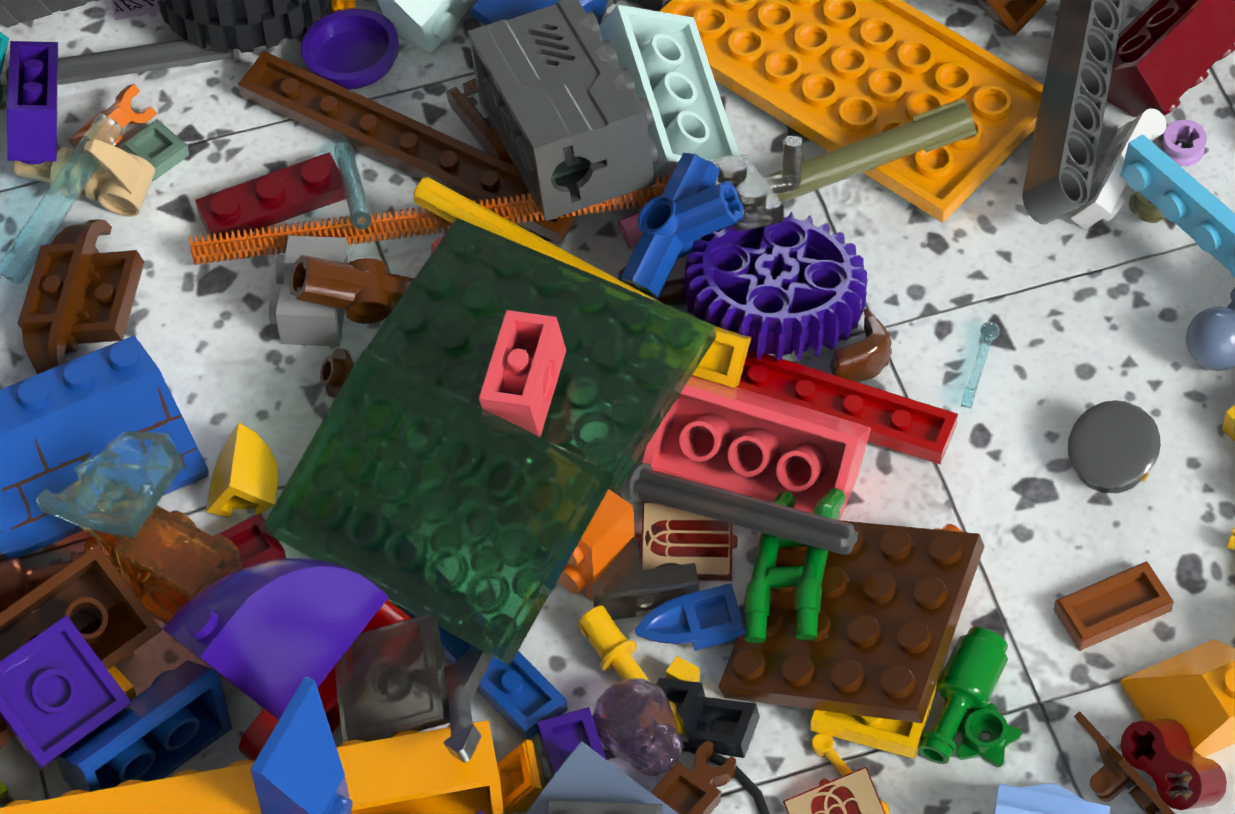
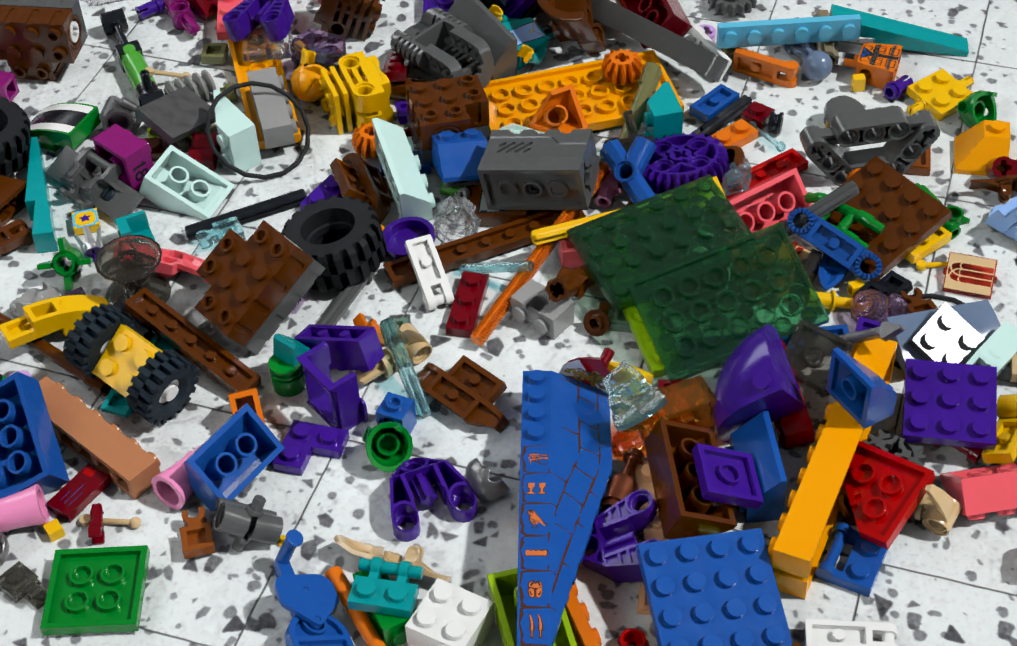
camera: 55 degrees left, 10 degrees down
(198, 427) = (589, 369): none -> shield
(277, 111) = (429, 271): none -> white plate
(415, 79) = (455, 219): none -> clear hair
(524, 370) = (691, 230): coral brick -> none
(720, 587) = (834, 244): none -> blue plate
(758, 66) = (559, 111): none -> orange slope
(789, 375) = (737, 178): none -> clear light blue plate
(864, 194) = (663, 113): none -> teal slope
(933, 320) = (737, 134): none -> orange plate
(948, 73) = (621, 67): none -> orange gear
(958, 280) = (725, 116): none -> black axle
(995, 249) = (713, 102): none -> blue plate
(1015, 358) = (775, 122): none -> black bush
(1015, 503) = (904, 137): none -> dark grey piece
(1026, 326) = (758, 113): none -> dark red plate
(1154, 272) = (765, 67): none -> orange plate

